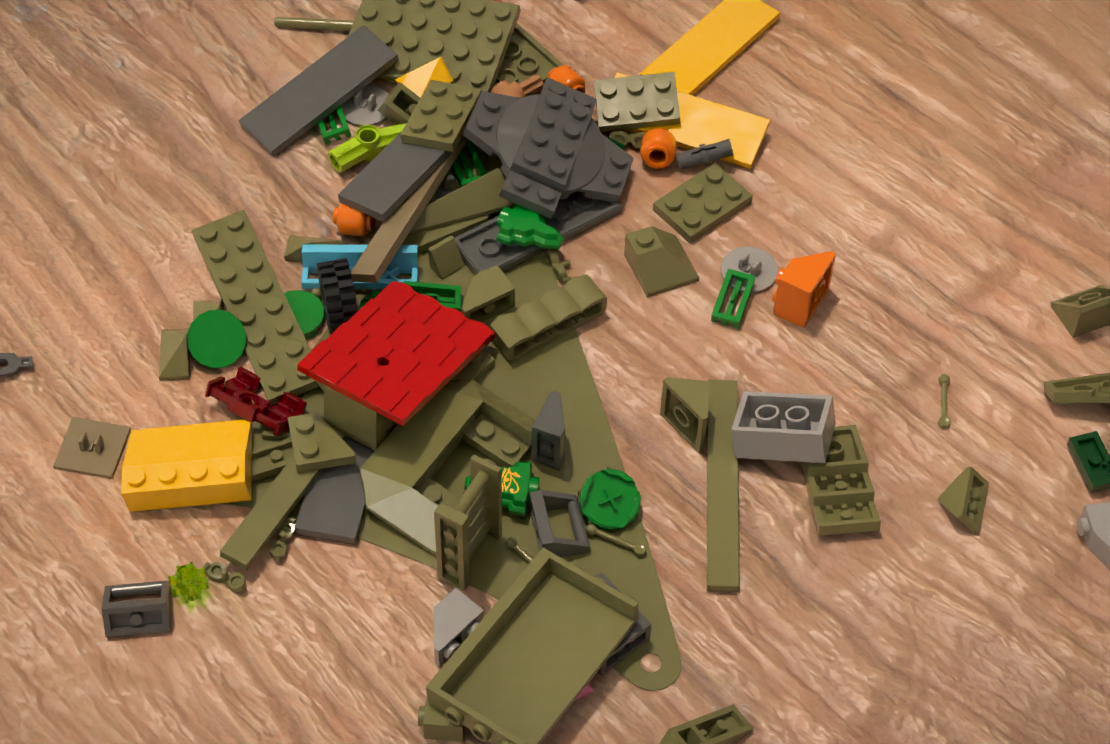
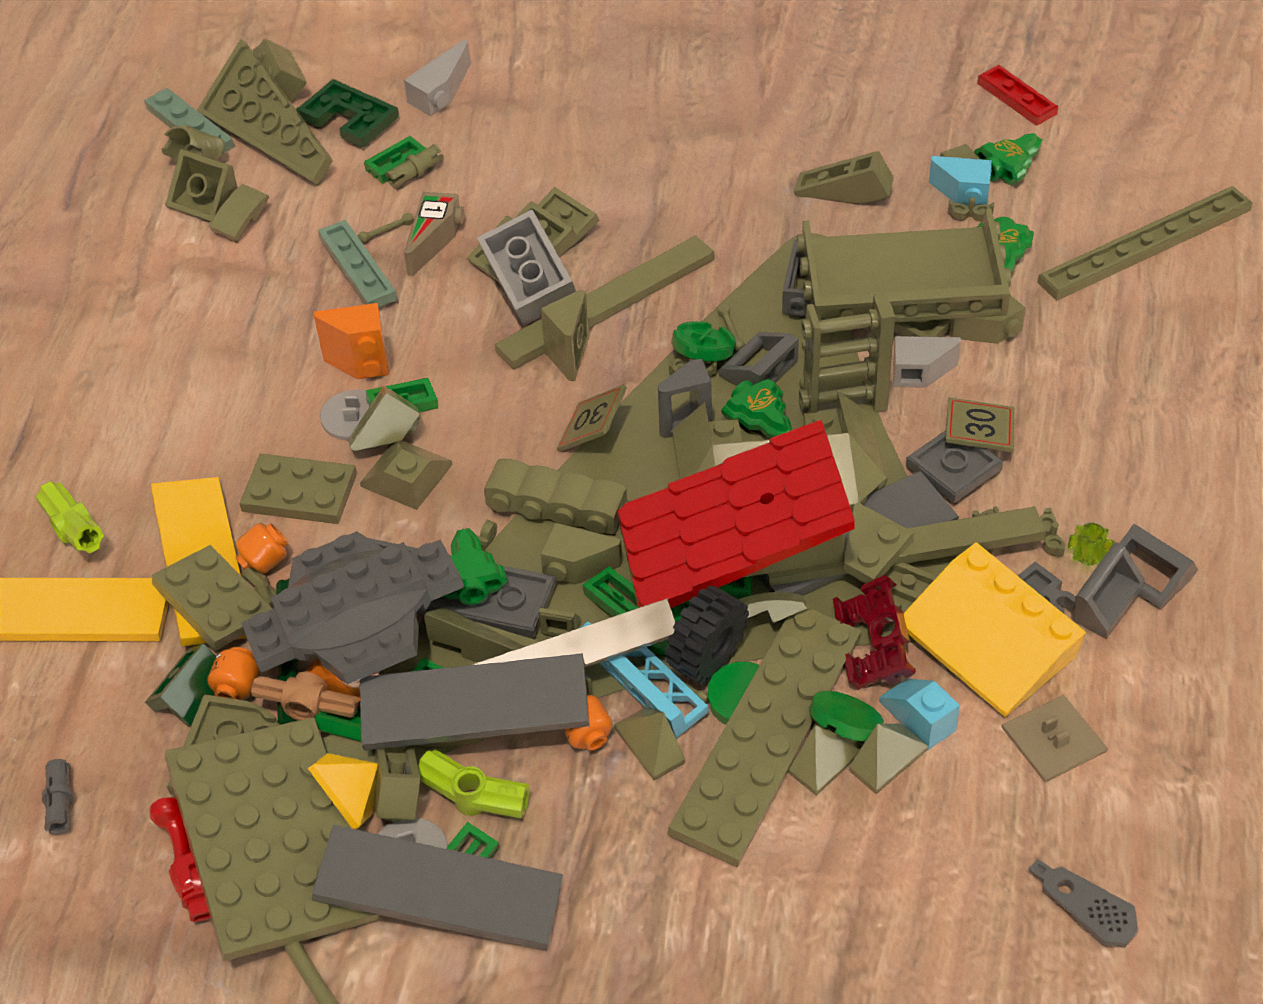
camera: 125 degrees left, 5 degrees down
(139, 547) = (1108, 592): none -> dark grey tile
(180, 384) = (923, 709): none -> medium azure slope
(192, 525) = (1047, 586): none -> dark grey plate
(341, 567) = (954, 467): none -> dark grey plate
(353, 605) = (980, 424): none -> olive piece
(441, 116) = (397, 705): olive plate -> none
(586, 62) = (185, 685): none -> panel
(597, 379) = (592, 418): none -> olive piece
(704, 154) = (236, 509): dark grey pin -> none
(708, 266) = (385, 421): none -> slope
(779, 74) = (69, 519): none -> lime piece
(908, 352) = (357, 264): none -> sand green plate
(910, 421) = (432, 228): none -> dark tan slope
(966, 498) = (478, 170): olive slope -> none
(1004, 458) = (414, 166): none -> olive pin
(1031, 477) = (392, 157): none -> green tile
(1041, 314) = (237, 211): none -> olive slope

